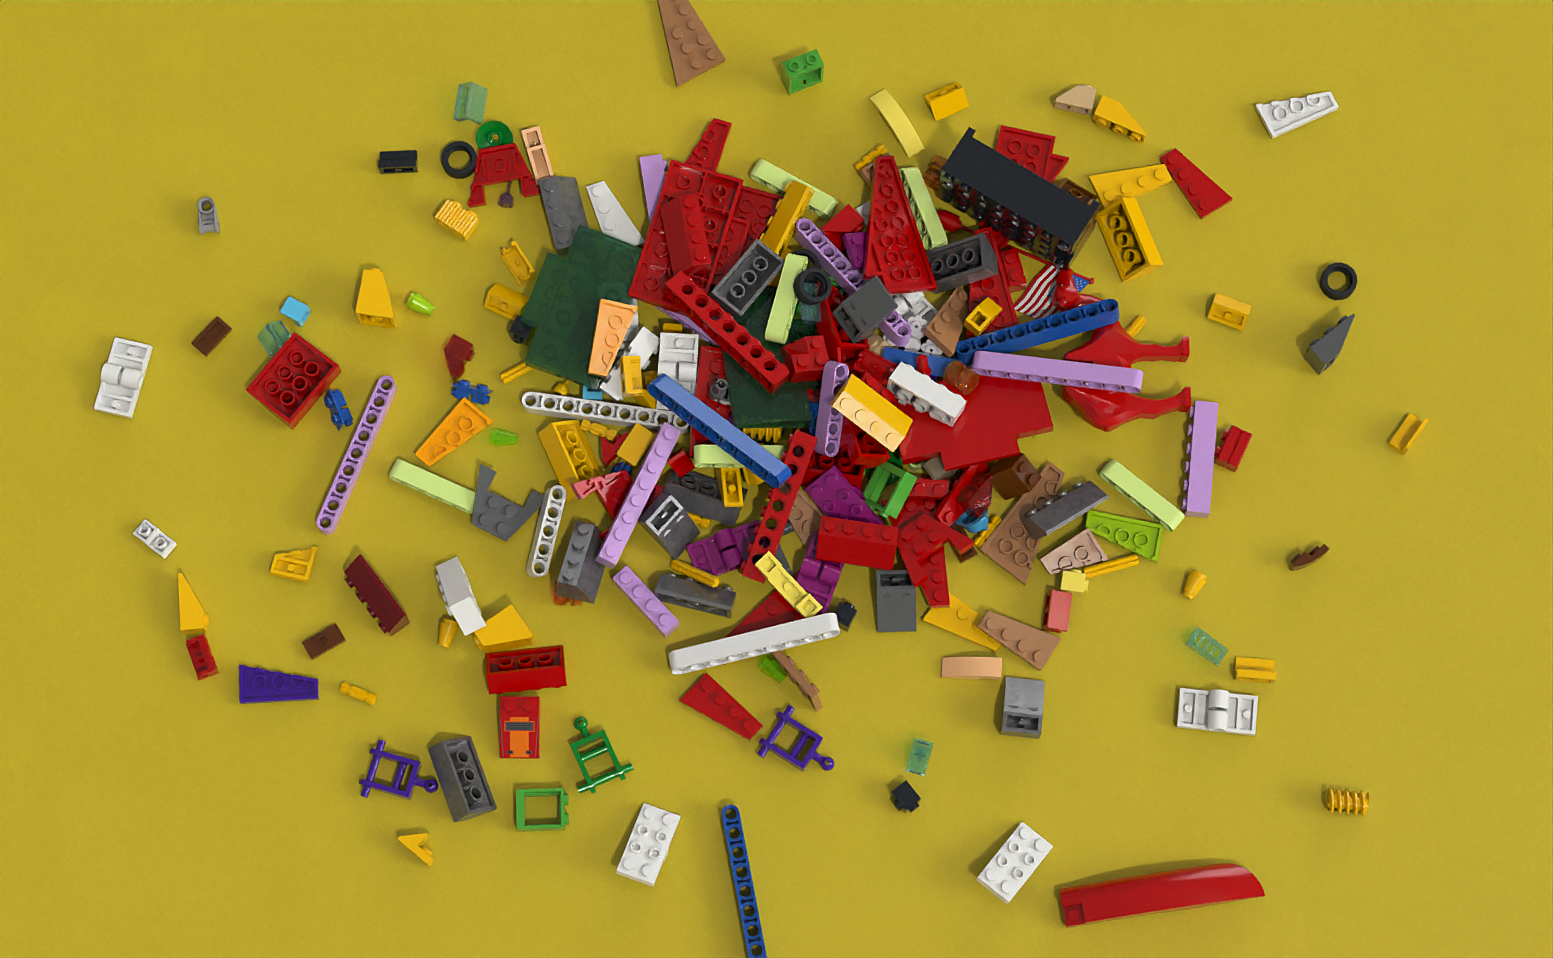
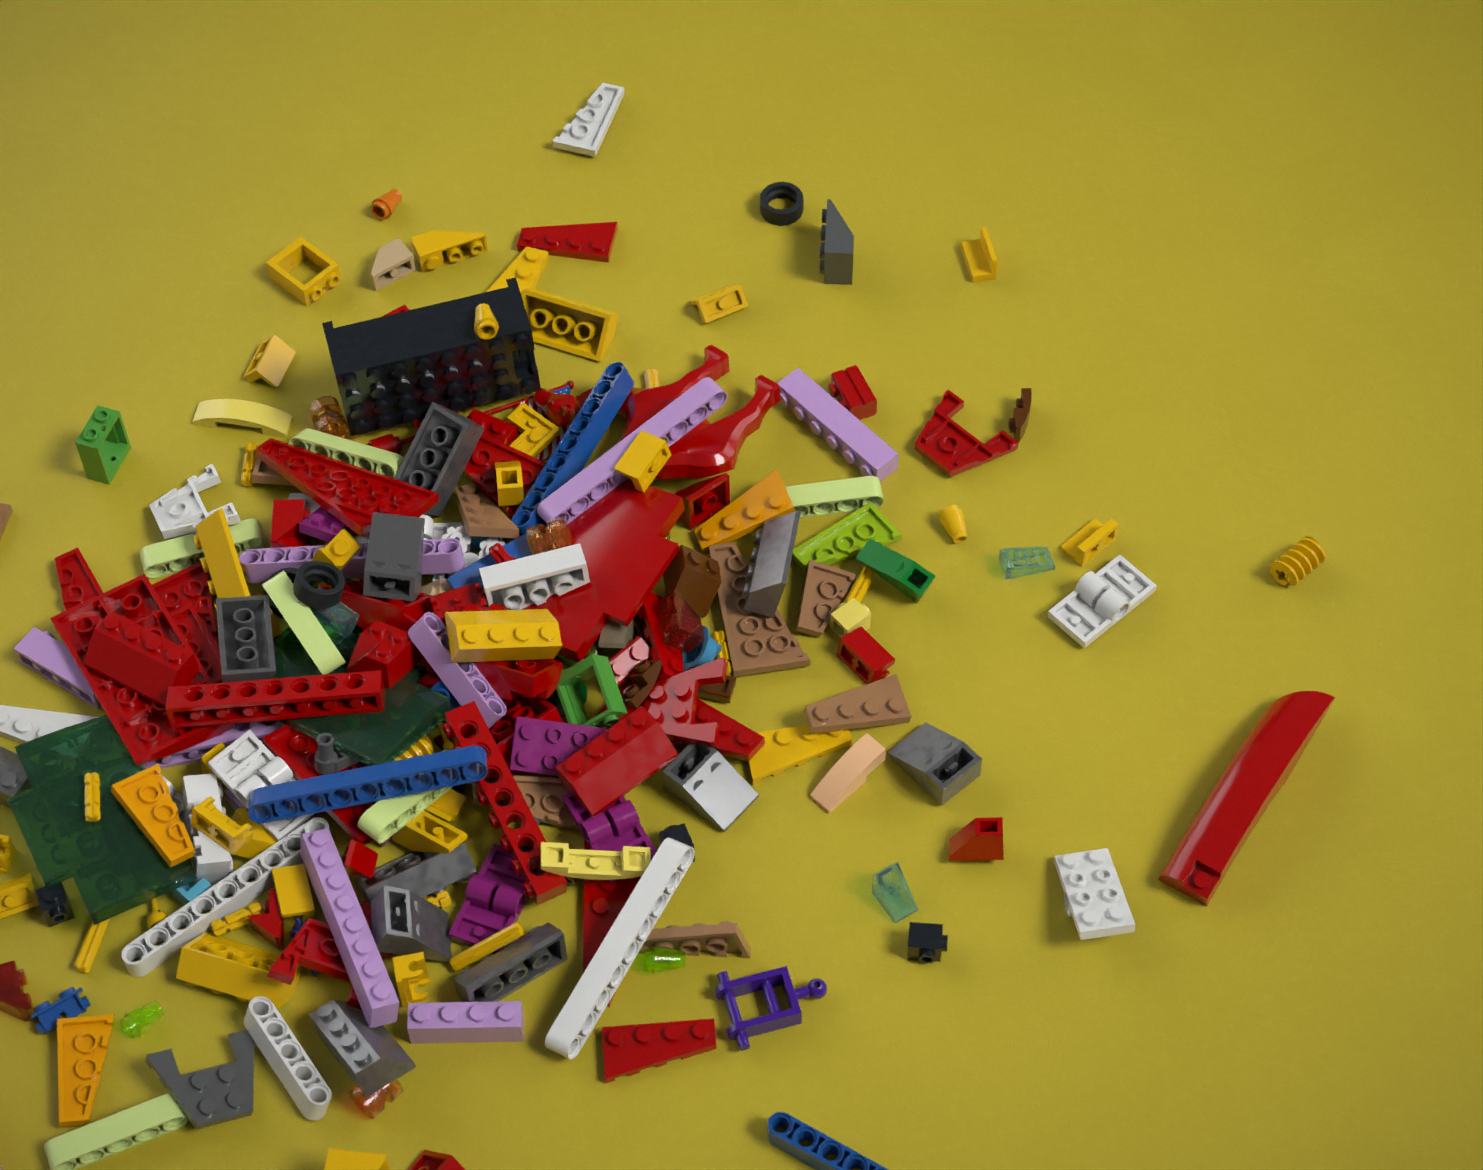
camera: 45 degrees left, 20 degrees down
(587, 294) = (92, 797): none -> yellow axle
(640, 550) = (410, 974): none -> yellow hinge
(804, 155) = (182, 510): none -> white wing
(843, 274) = (339, 550): none -> yellow slope
(927, 507) = (643, 680): none -> reddish brown slope
(991, 774) = (978, 841): none -> red slope
(1025, 39) = (291, 257): none -> yellow window
(1037, 296) = (535, 430): none -> yellow plate
(1050, 218) = (485, 322): none -> yellow cone
(1054, 383) = (643, 460): none -> yellow panel
(1074, 430) = (704, 499): none -> red slope
(1093, 465) = (747, 512): none -> light orange wing
(1117, 54) = (384, 205): none -> orange cone
(1127, 580) = (896, 569): none -> green slope
(1248, 536) = (953, 447): none -> red wing

